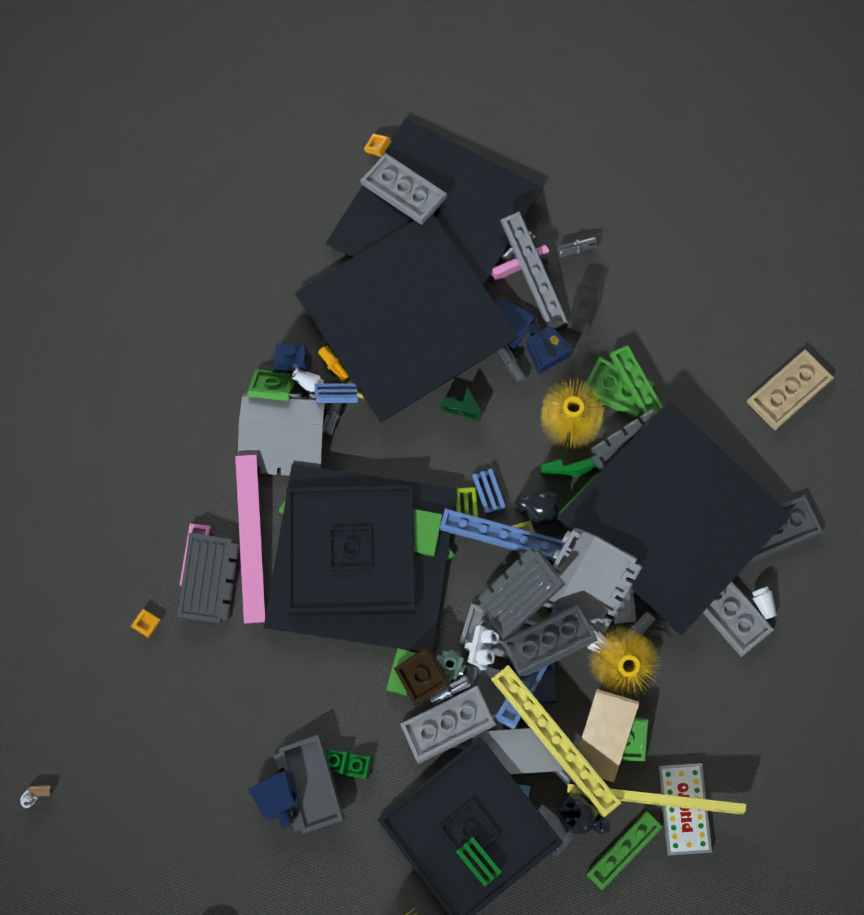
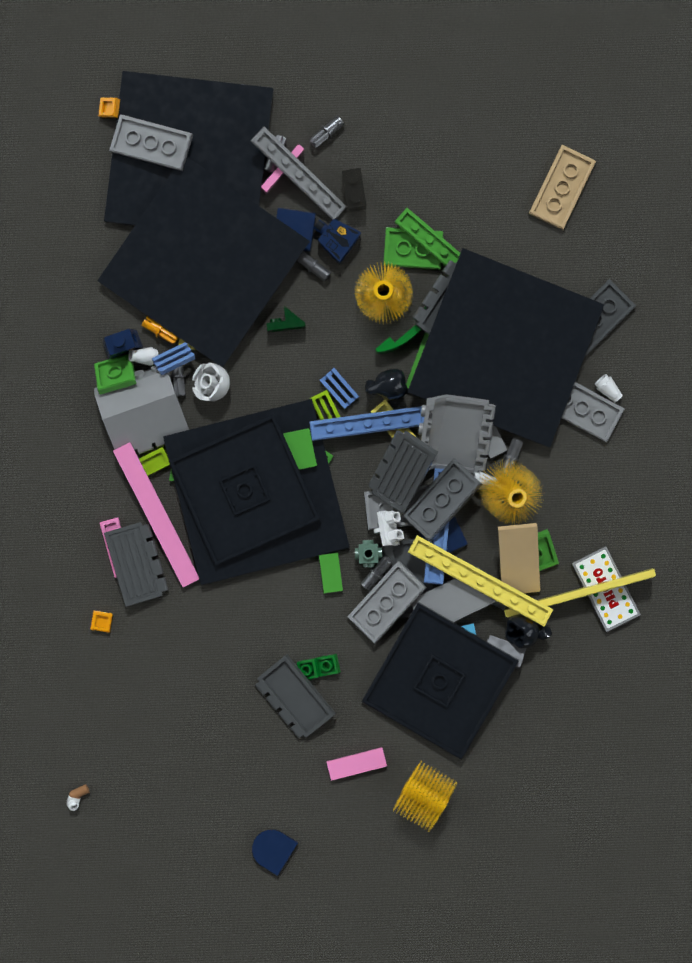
camera: 15 degrees left, 15 degrees up
(272, 487) = (155, 461): none -> lime tile
(277, 797) = (273, 719): dark blue torso -> none
(344, 885) = (356, 763): none -> bright pink tile
(363, 431) = (210, 382): none -> white cylinder
(422, 675) = (349, 571): dark brown tile -> none
(466, 846) = (471, 711): green tile -> none
(624, 850) = (569, 642): bright green tile -> none

